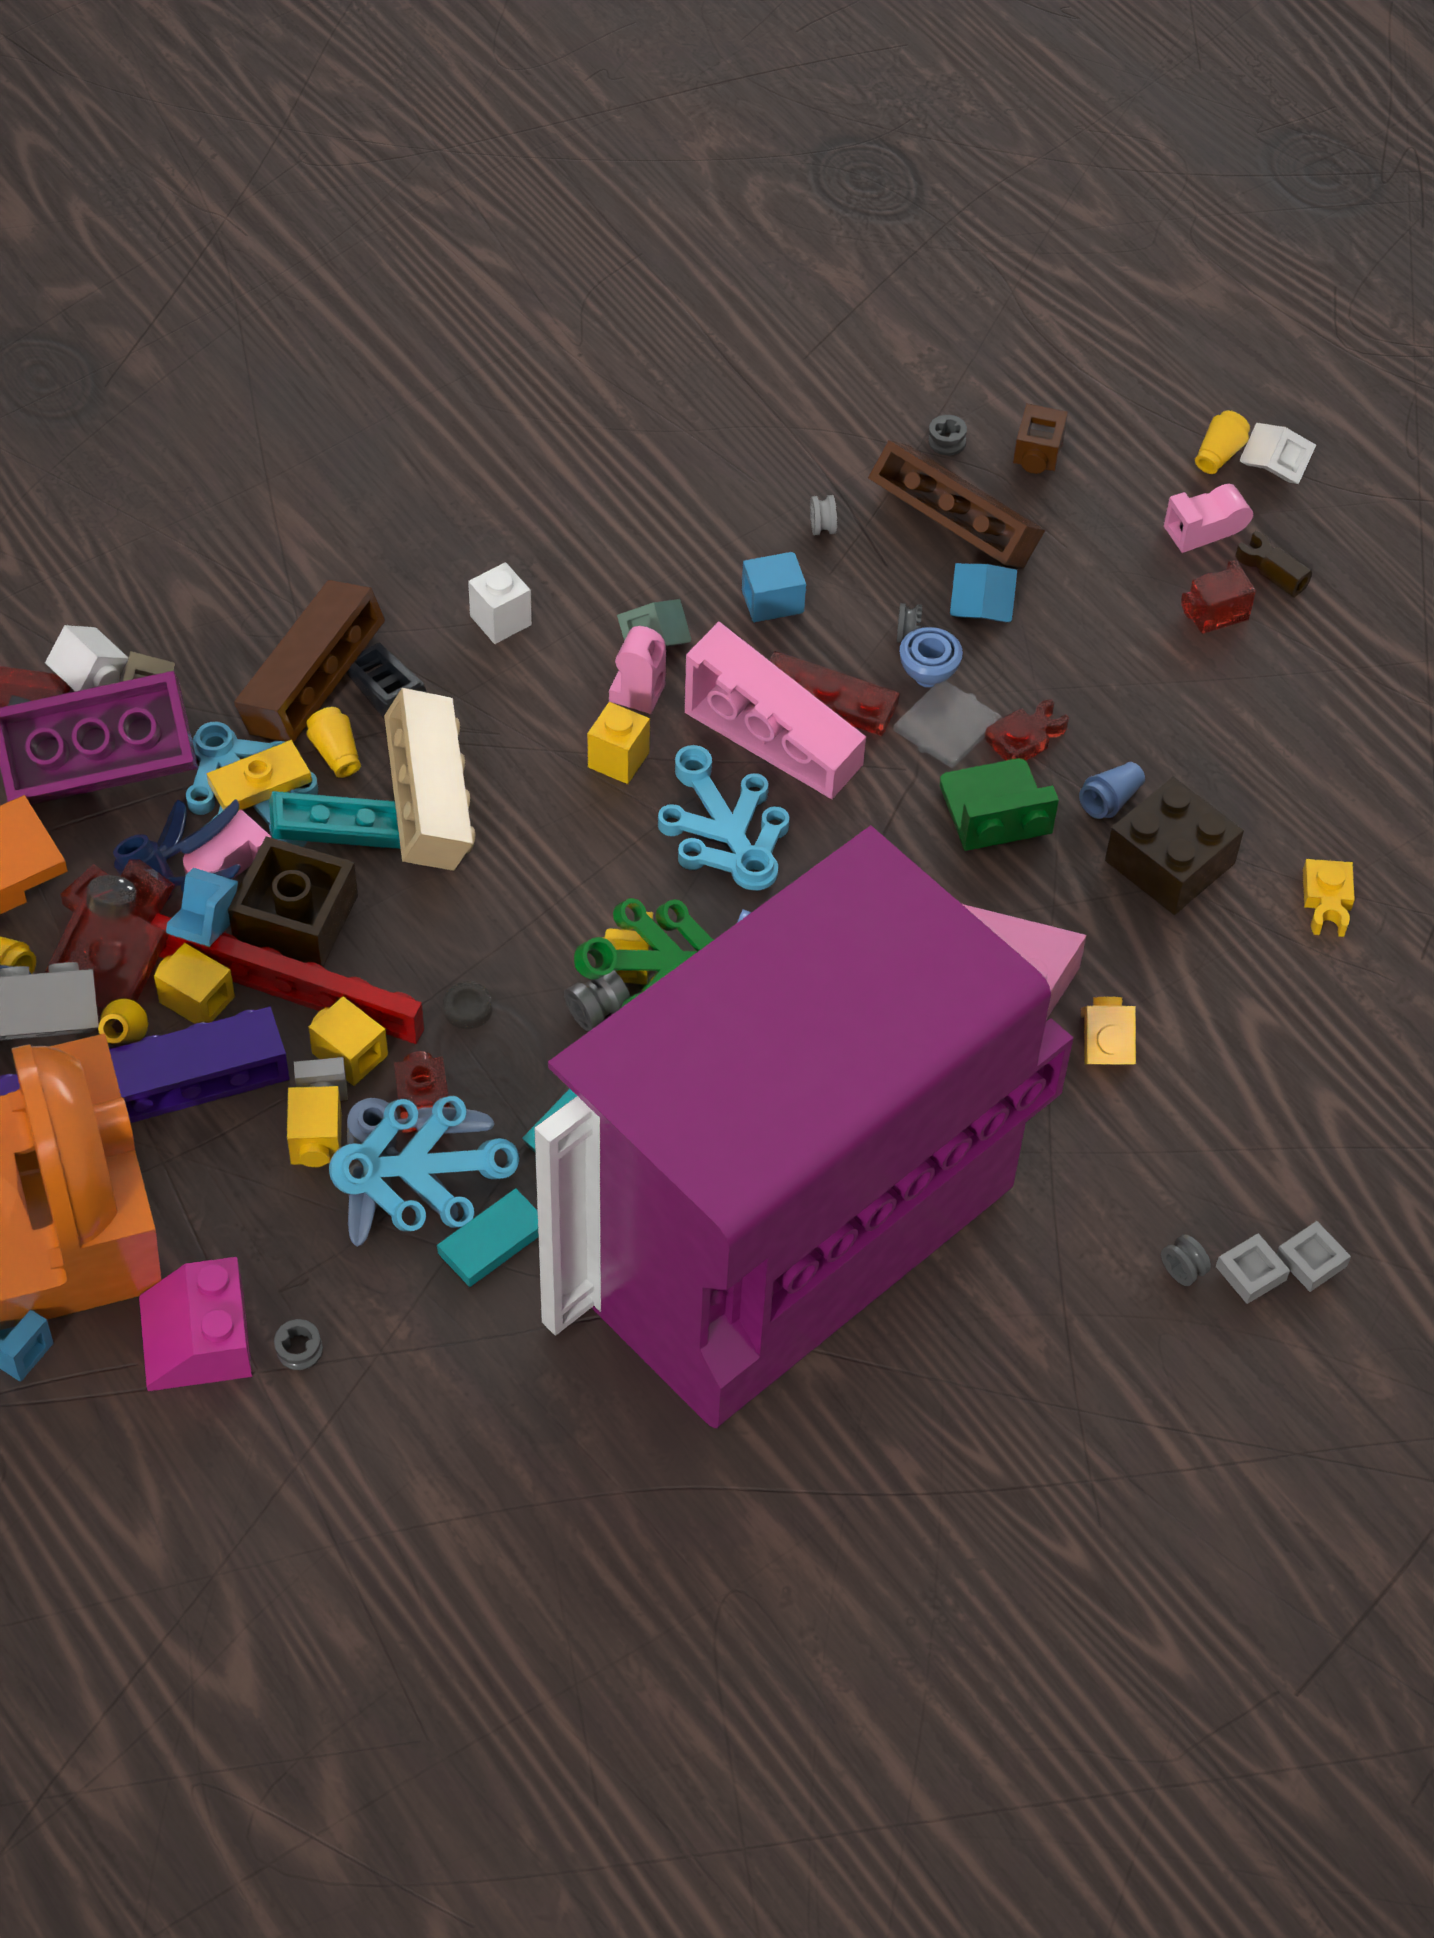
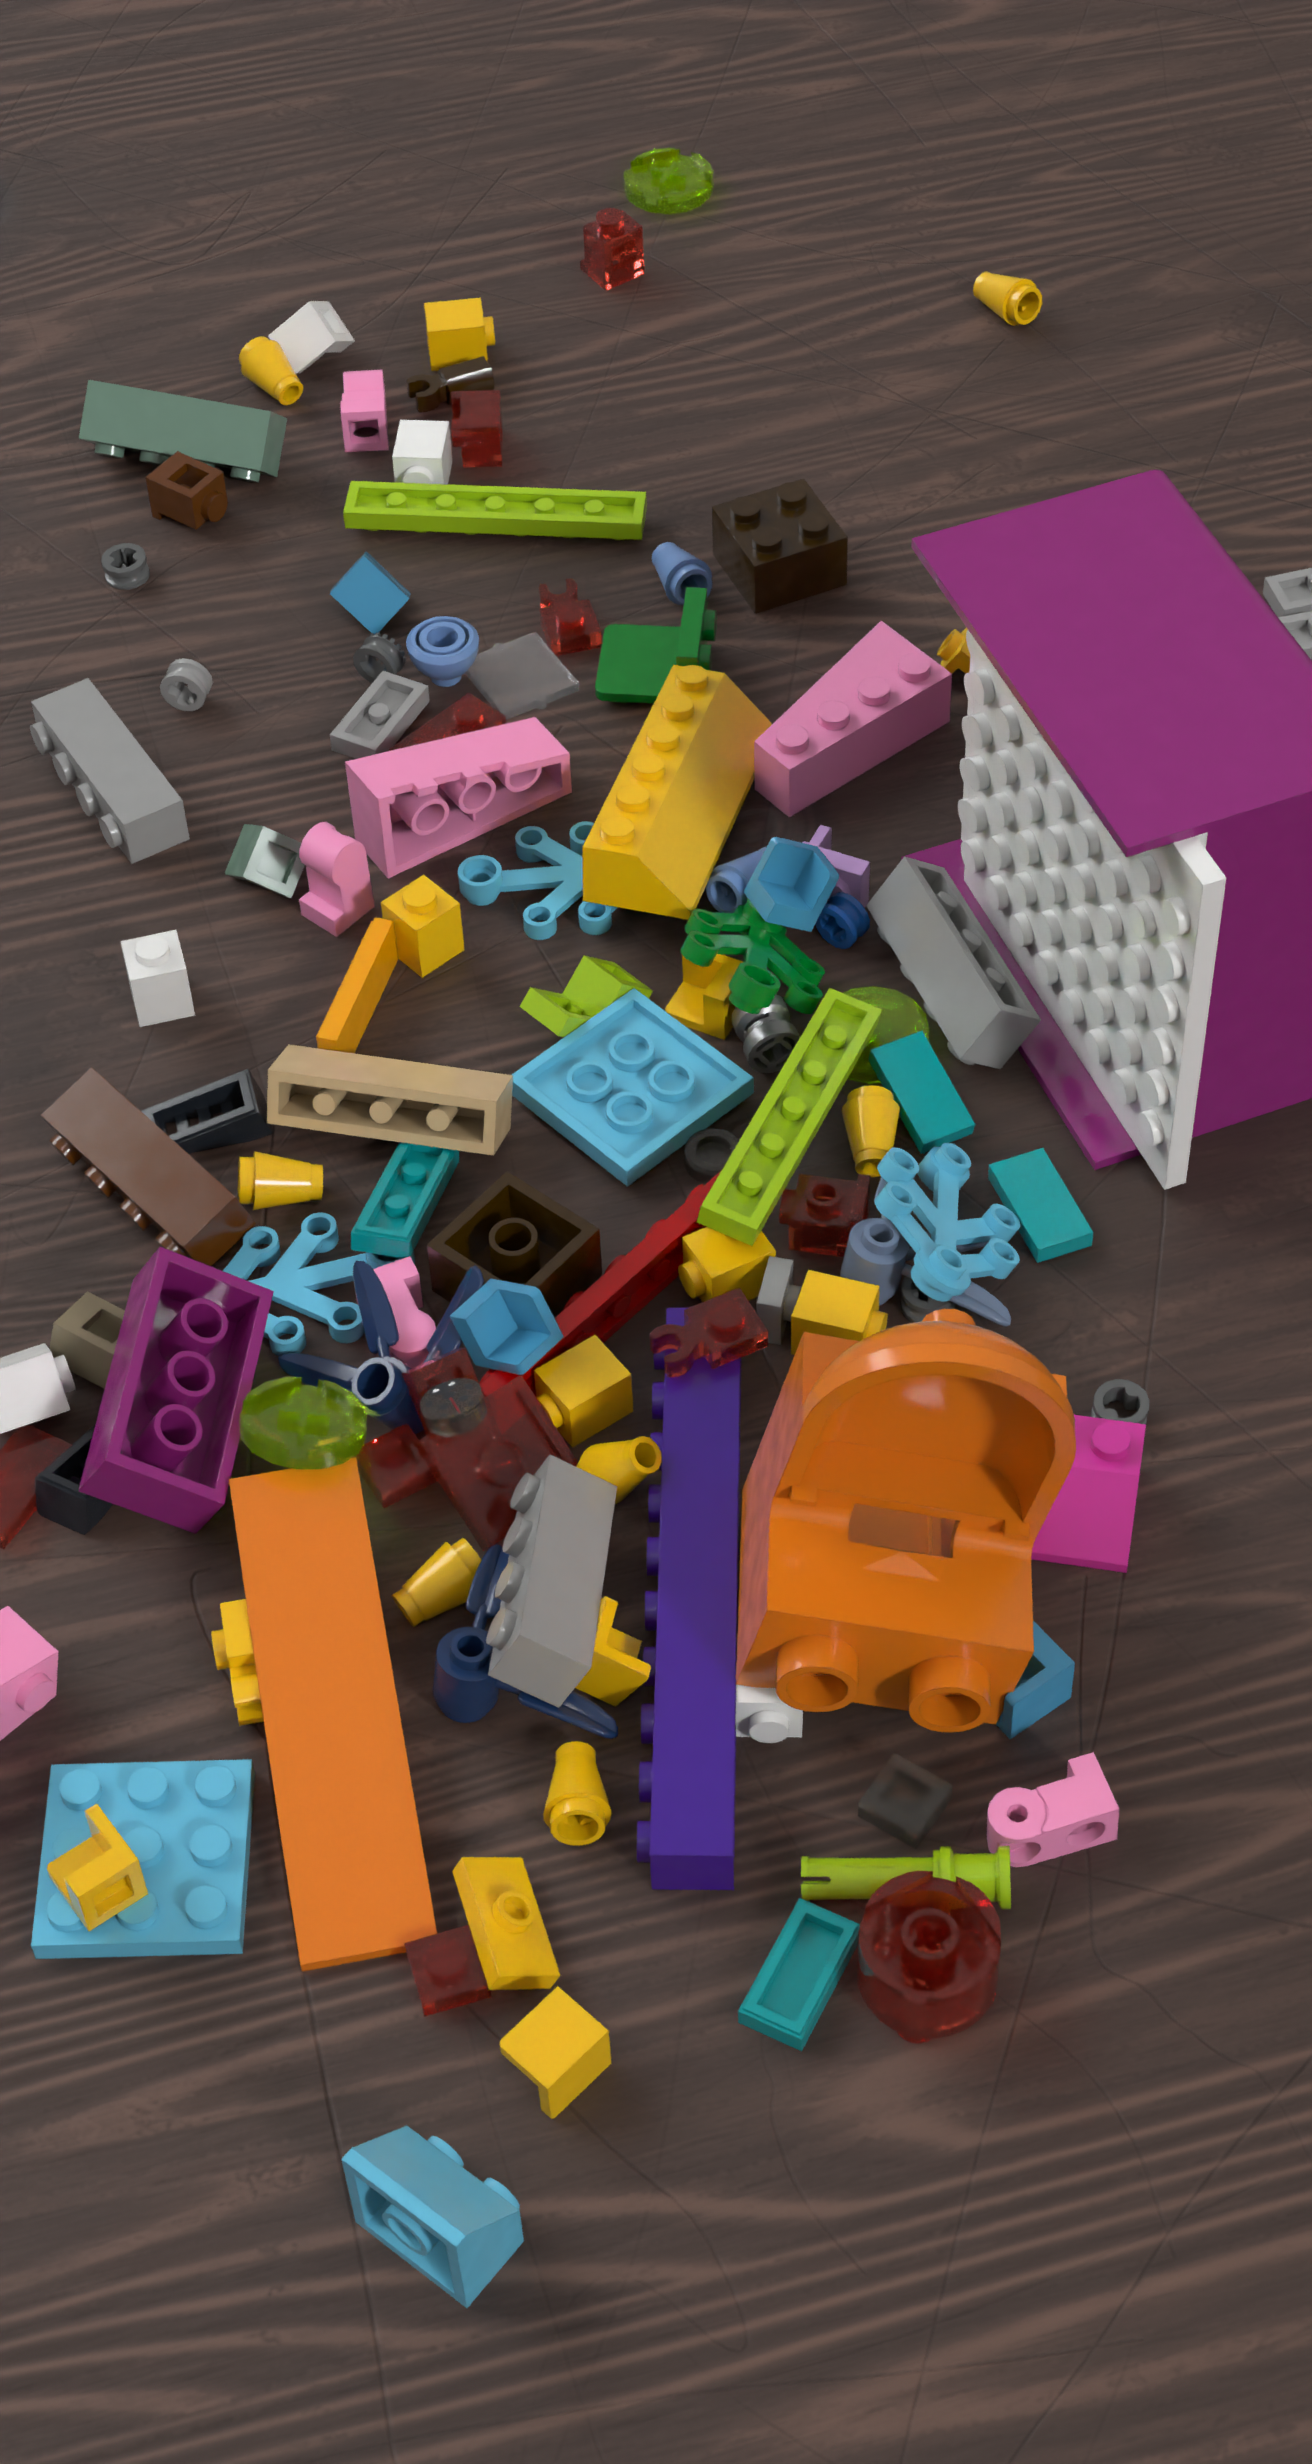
camera: 65 degrees left, 5 degrees down
(80, 818) = (303, 1423): none -> clear neon green tile
(247, 1043) = (714, 1329): none -> clear red plate
(258, 775) = (300, 1260): yellow plate -> none
(461, 1024) = (789, 1117): none -> lime plate
(510, 928) = (631, 1086): none -> medium azure plate
(522, 1098) = (870, 1126): none -> yellow cone
(528, 728) = (360, 989): none -> light orange tile
(591, 879) = (589, 991): none -> lime slope
(706, 501) = (108, 771): none -> light grey brick
(753, 849) = (674, 797): none -> yellow slope
(773, 586) = (267, 748): dark azure panel -> none
(844, 645) = (380, 716): none -> light grey plate
(956, 504) = (245, 571): reddish brown brick -> none
(1109, 407) = (164, 423): none -> sand green wedge
(1128, 644) = (495, 510): none -> lime plate
(1160, 572) = (422, 452): none -> white brick
(1330, 890) = (873, 468): yellow plate -> none
(1334, 544) = (457, 331): none -> yellow brick

